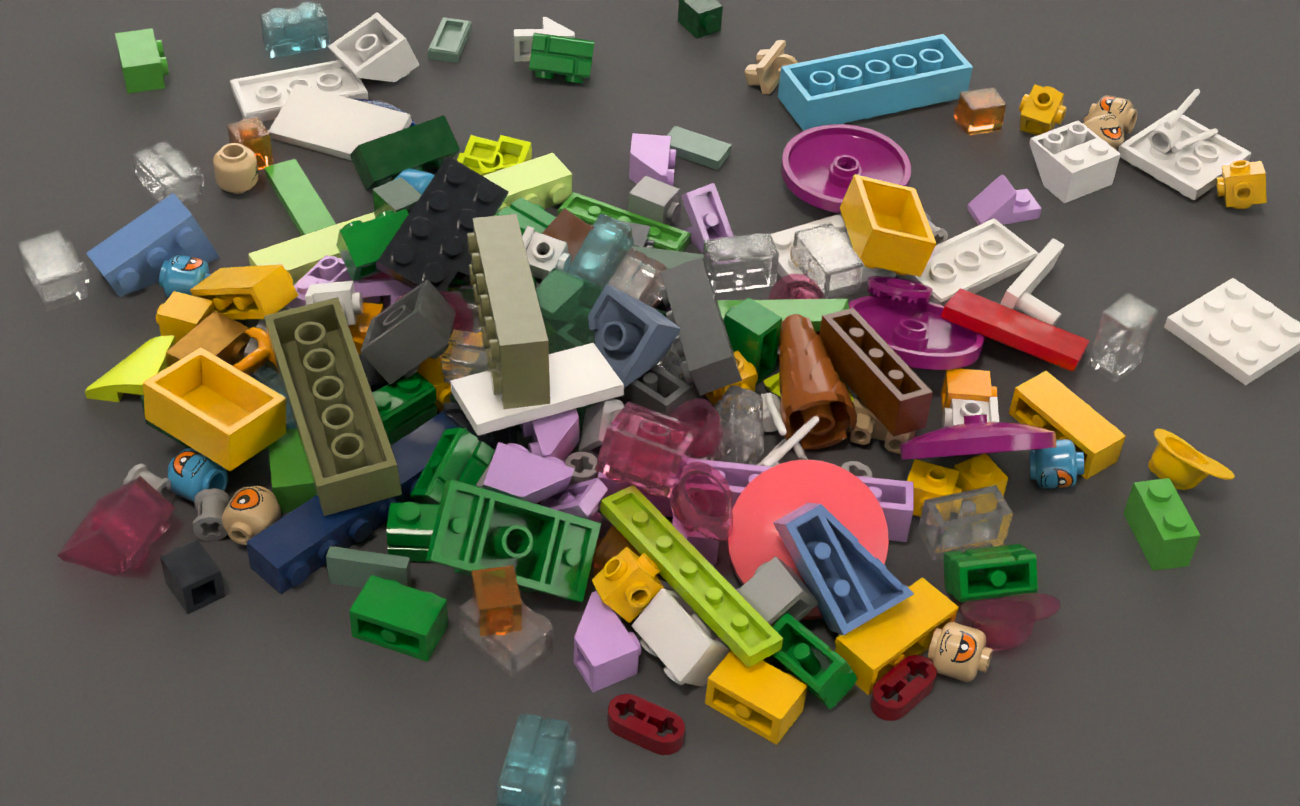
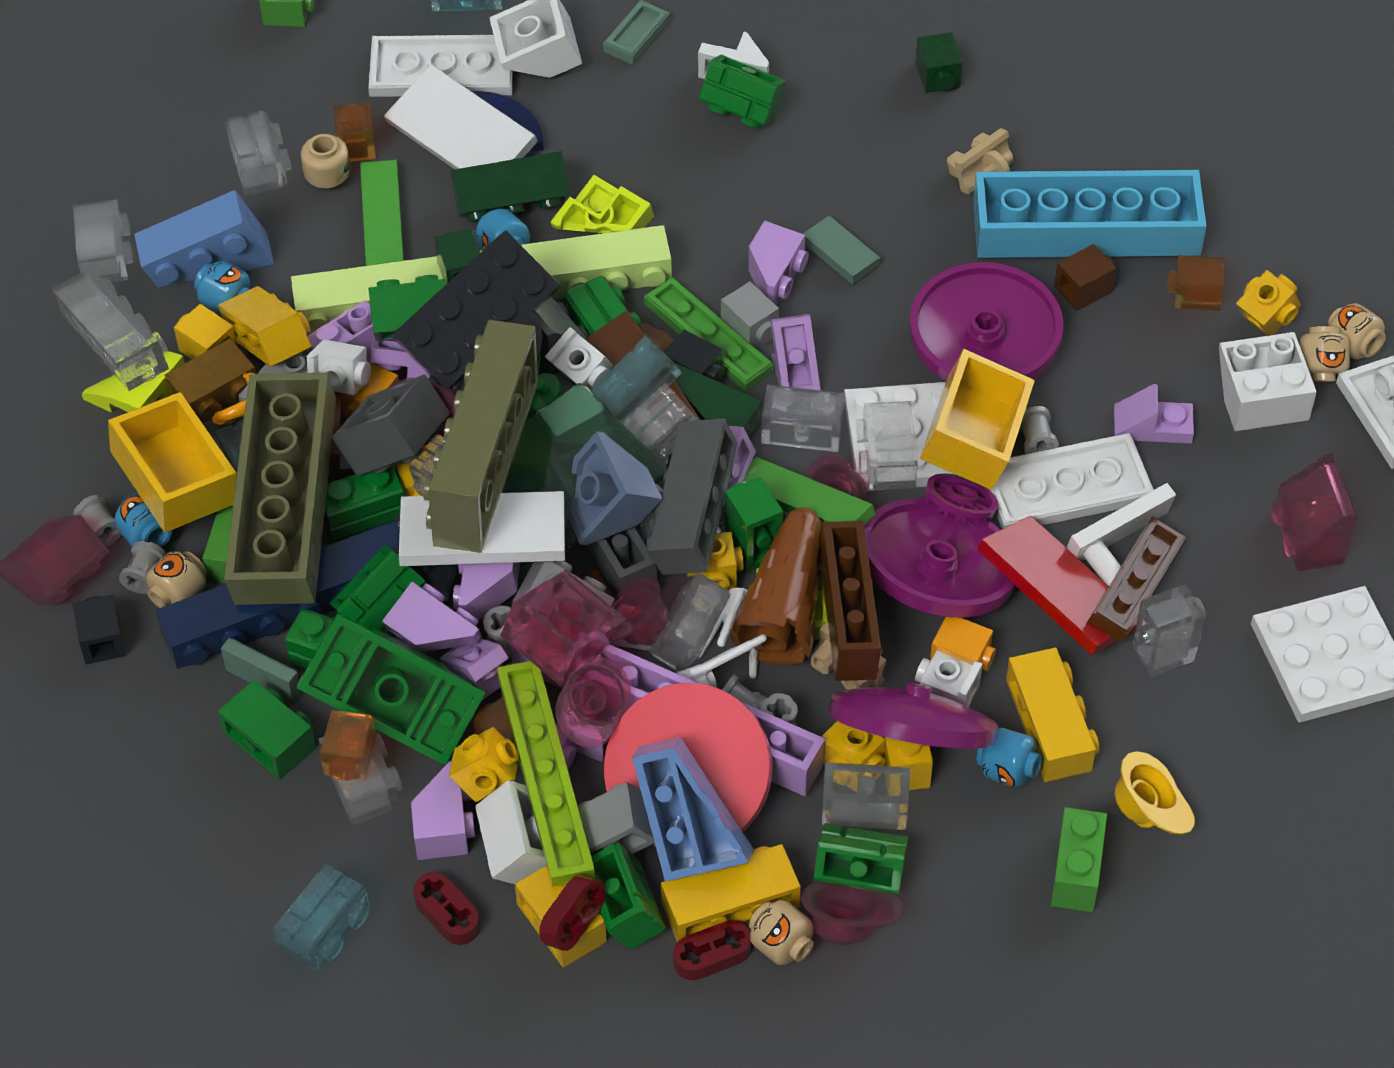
camera: 25 degrees right, 10 degrees up
(97, 327) = (111, 328): none -> clear brick
(781, 682) = (572, 912): none -> dark red beam
(897, 121) = (1085, 277): none -> reddish brown brick
(1070, 312) = (1136, 579): none -> tile
(1173, 234) = (1315, 515): none -> clear pink slope

